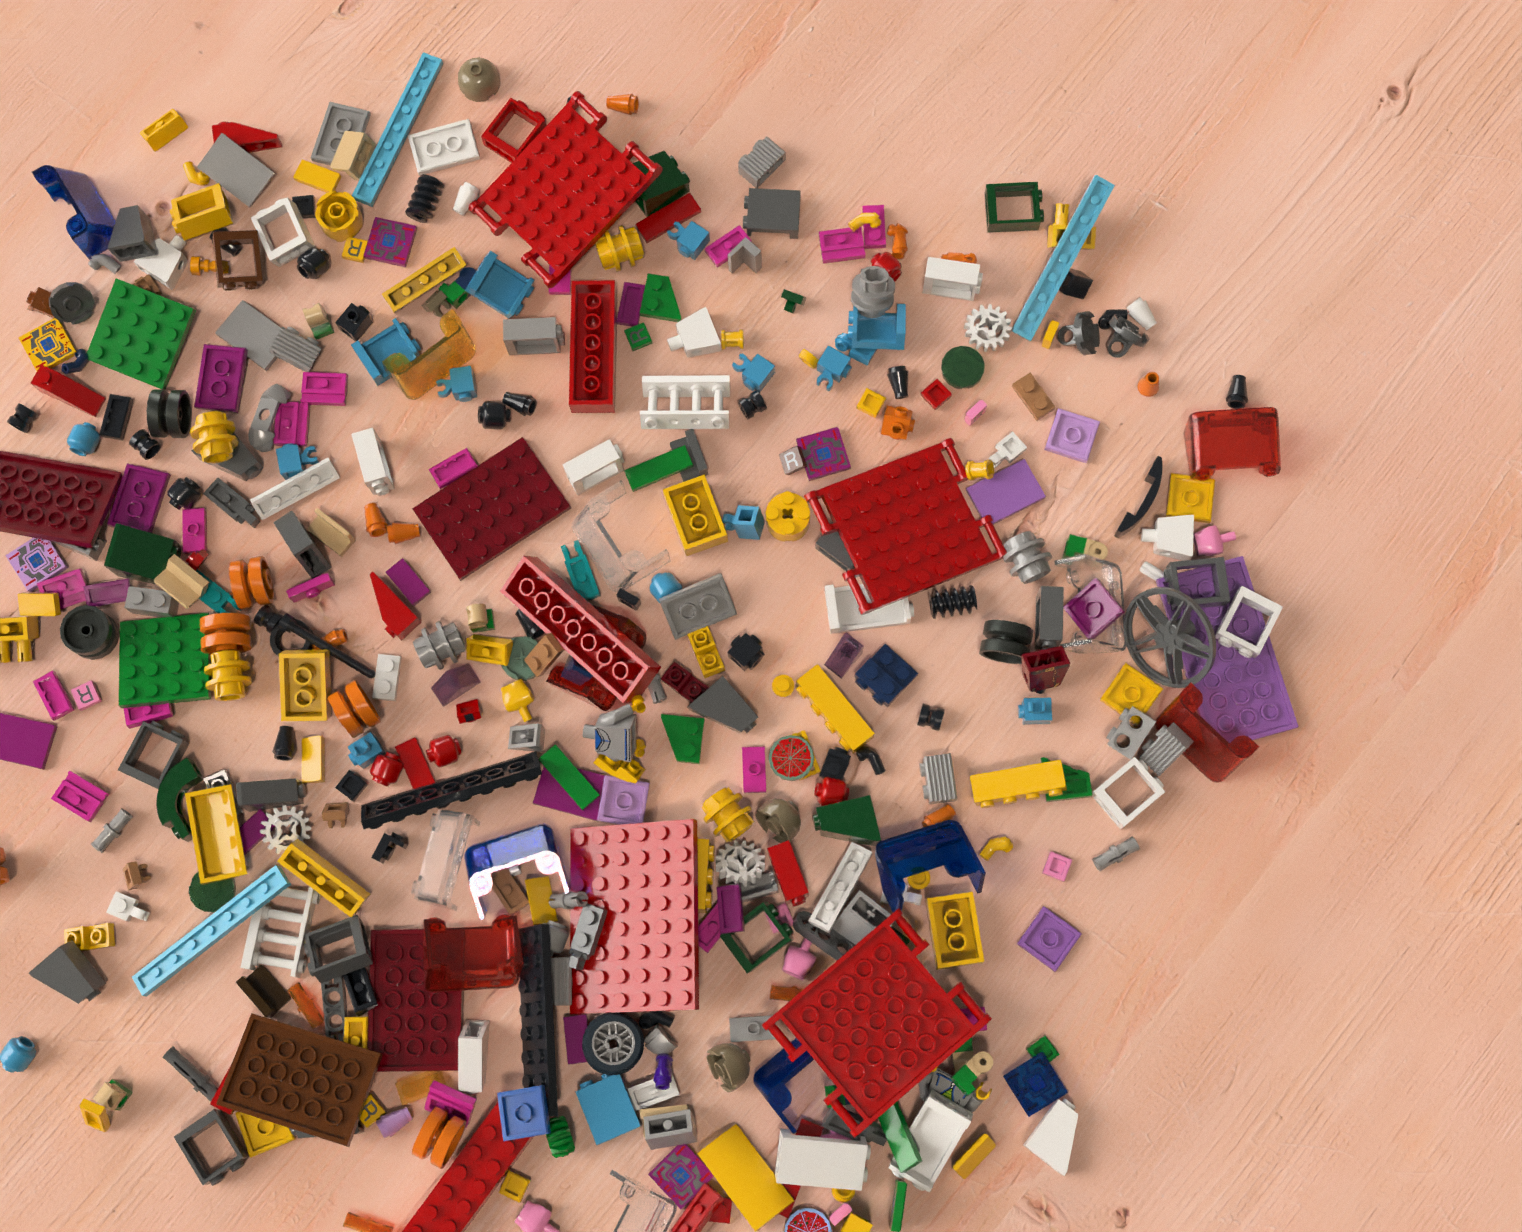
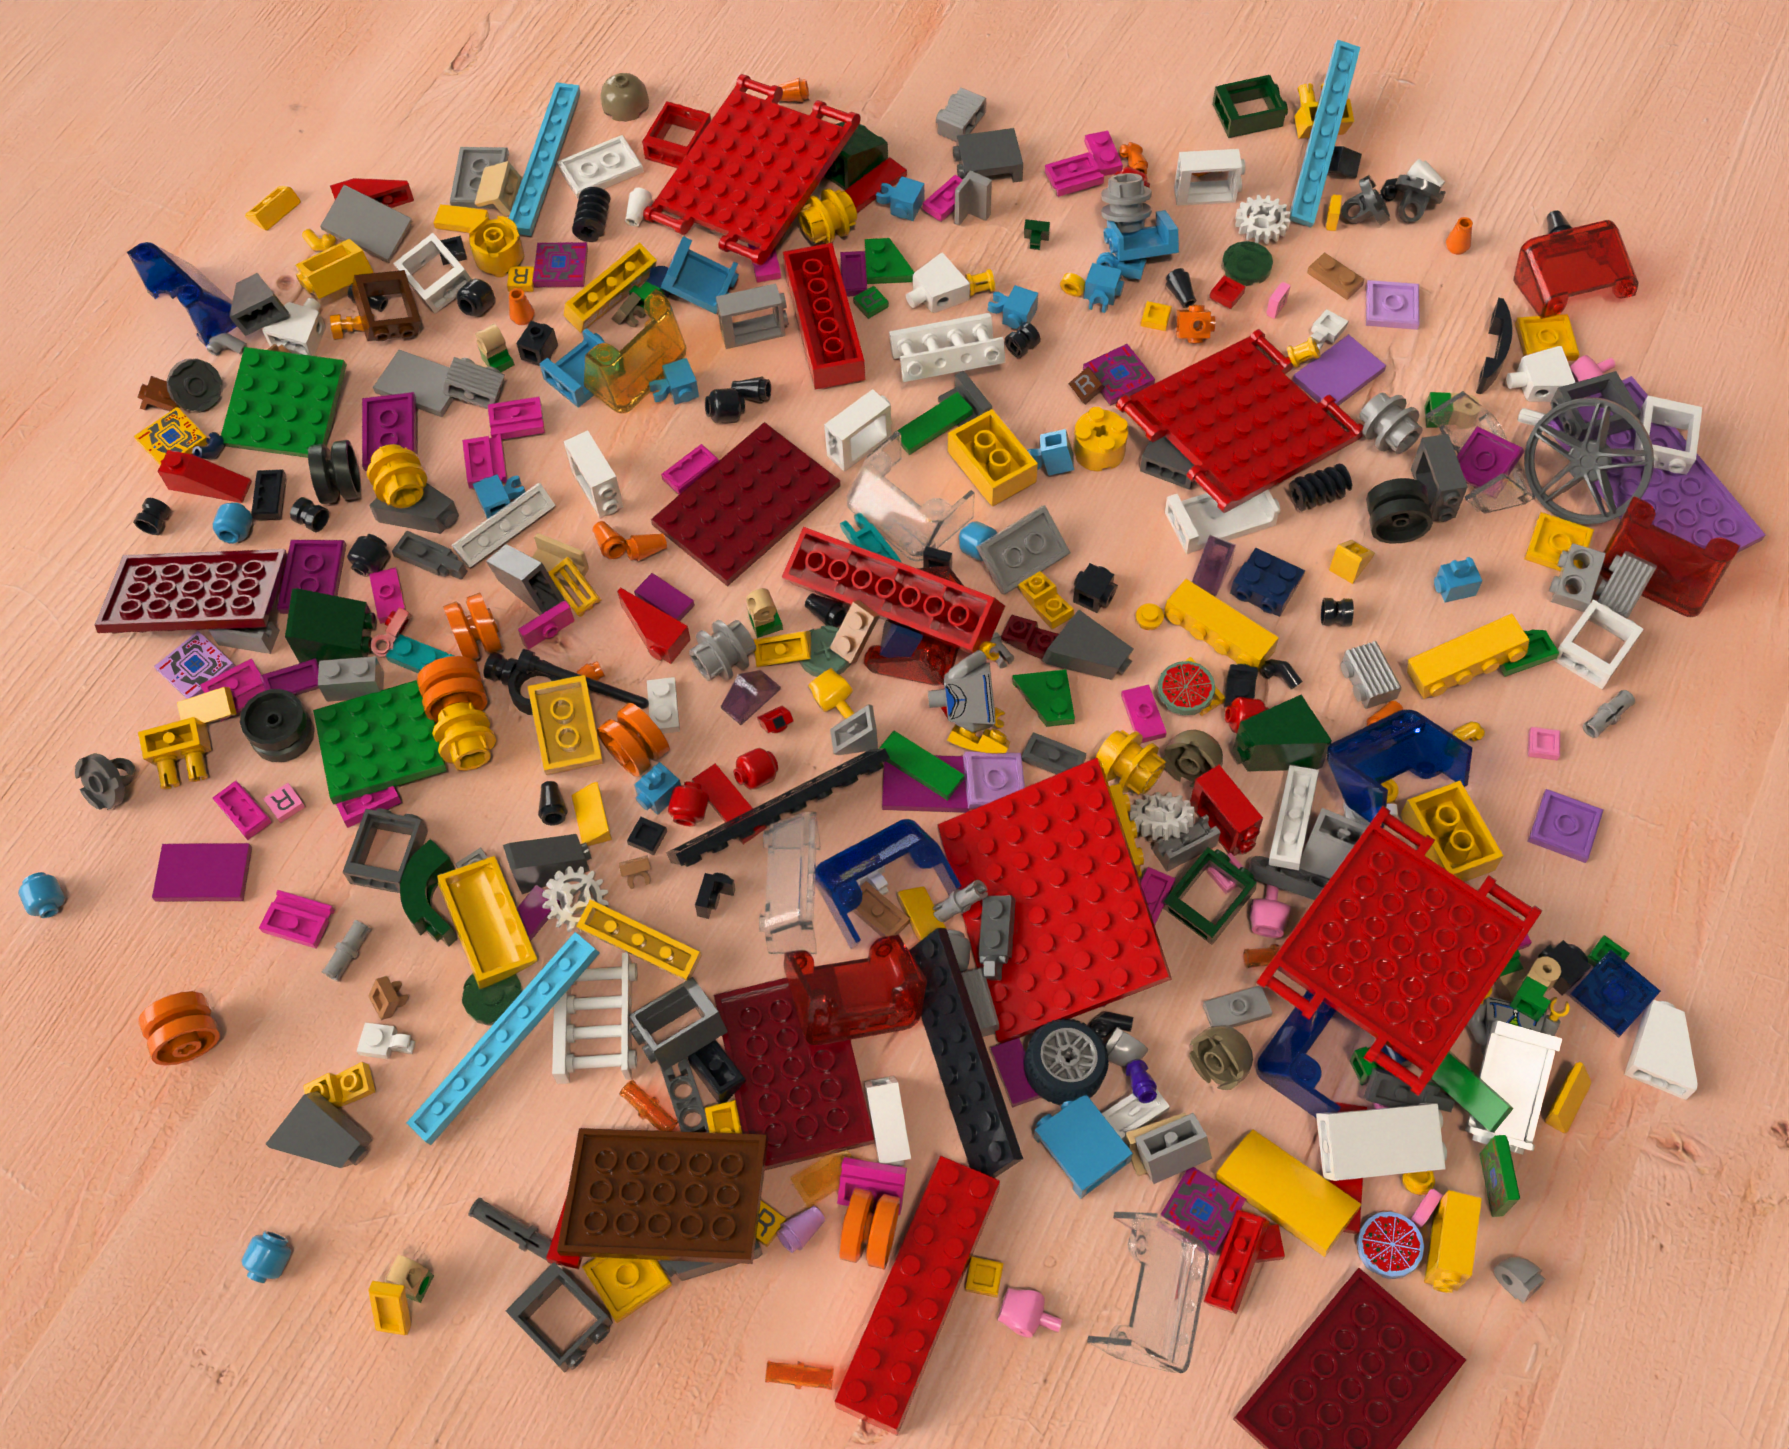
camera: 15 degrees left, 15 degrees down
(182, 582) = (386, 641): tan panel -> none
(259, 432) = (449, 474): light grey piece -> none
(264, 991) = (588, 1102): dark brown panel -> none
(339, 558) = (587, 603): none -> yellow tile
(347, 282) = (519, 307): none -> orange cone
(523, 1113) = (978, 1163): tile -> none
(560, 1138) = (1029, 1193): green gear -> none
(673, 792) = (1051, 754): none -> dark grey plate
(730, 909) = (1169, 865): magenta tile -> none
(865, 218) = (1092, 141): yellow arm -> none
(959, 670) = (1350, 560): none -> yellow slope
(1005, 1053) = (1572, 963): none -> black brick
(1044, 668) = (1455, 526): dark red torso -> none

